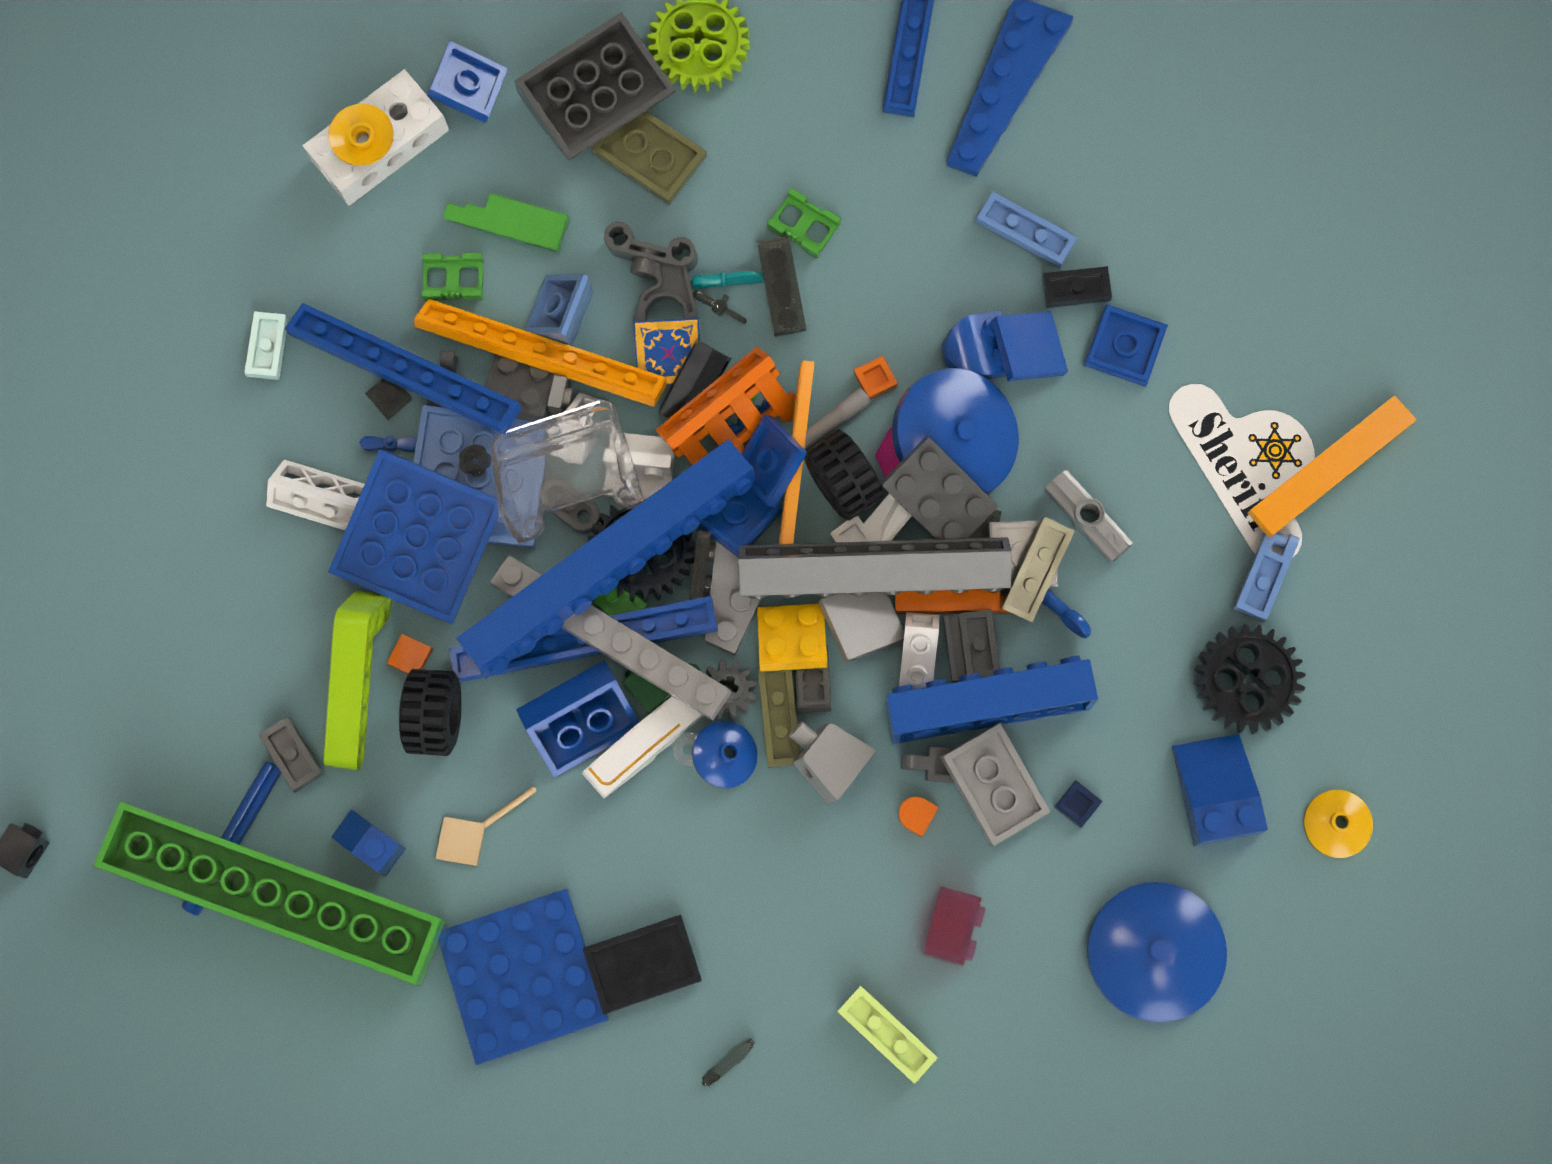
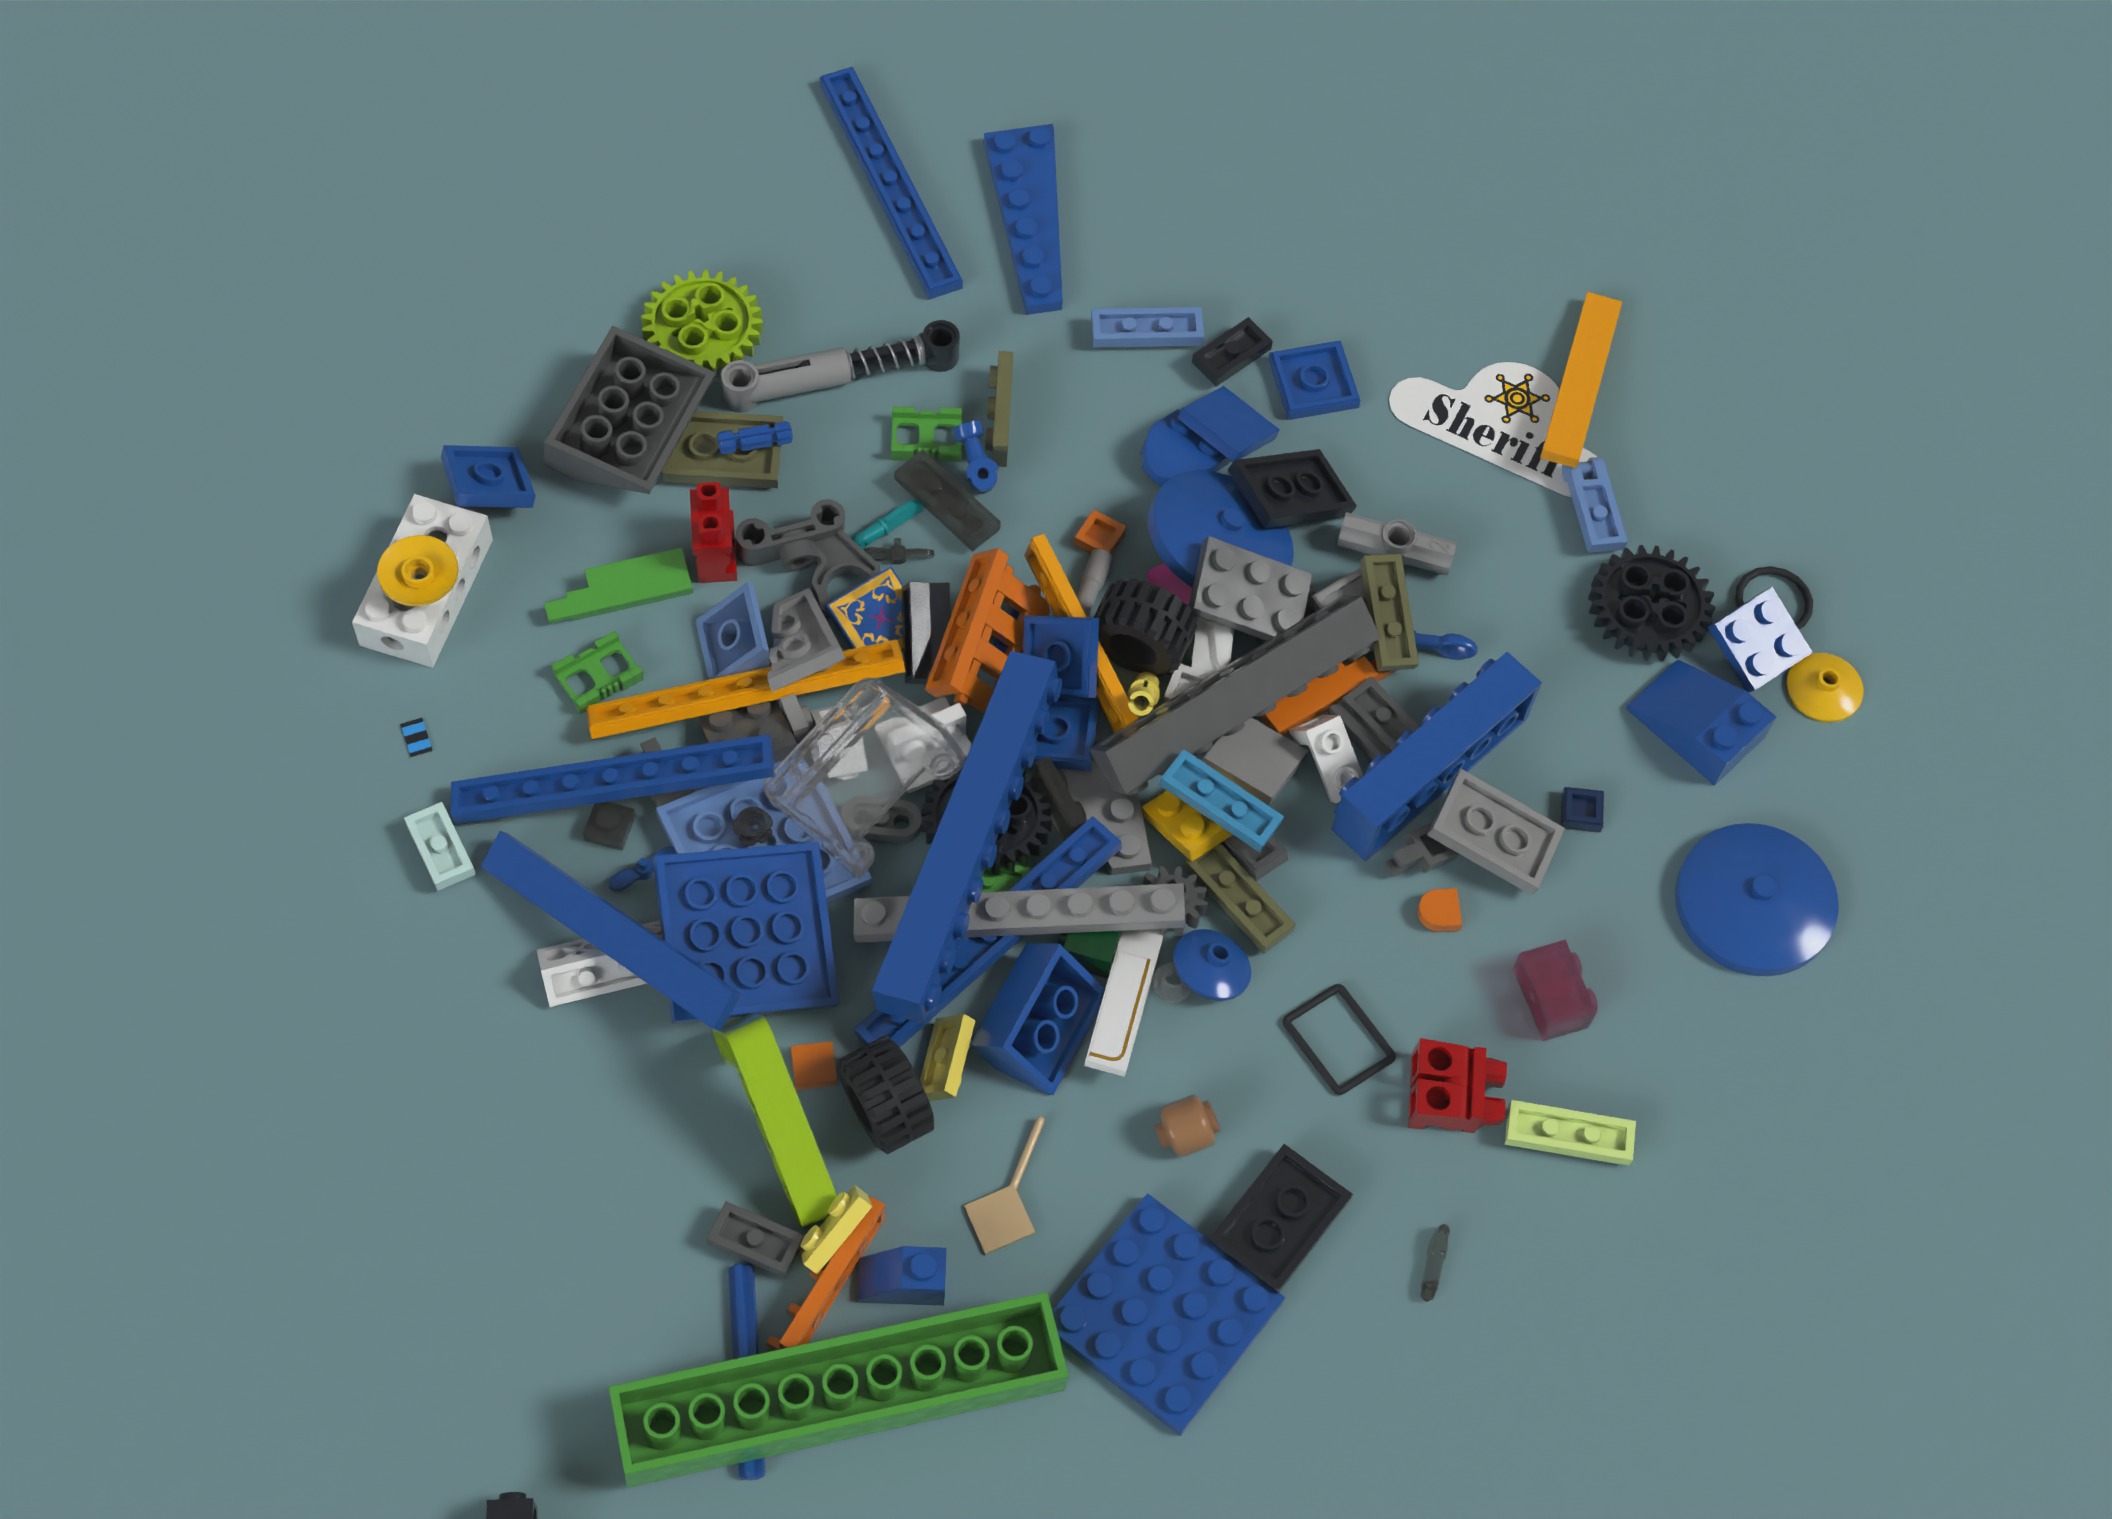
camera: 45 degrees left, 15 degrees down
(305, 253) = (416, 737): none -> sticker
(320, 813) = (830, 1281): none -> orange hinge
(326, 482) = (611, 931): none -> blue tile
(345, 781) = (823, 1241): none -> light yellow plate
(496, 707) = (946, 1056): none -> light yellow plate
(593, 210) = (713, 533): none -> red hips
(600, 339) = (801, 640): none -> light grey wing
(624, 859) = (1187, 1125): none -> medium nougat head
(671, 158) = (754, 437): none -> blue axle
(750, 863) = (1391, 1056): none -> black piece
(771, 132) = (835, 367): none -> piece
(802, 643) = (1221, 800): none -> dark azure plate
(812, 524) = (1149, 694): none -> light yellow pin
(819, 279) = (981, 470): none -> blue leg
(828, 956) = (1451, 1085): none -> red hips
(829, 758) = (1323, 901): light grey torso -> none
(869, 235) = (999, 408): none -> olive plate
(1036, 427) = (1291, 488): none -> black plate
(1311, 758) = (1760, 639): none -> plate
(1351, 763) = (1786, 574): none -> black piece

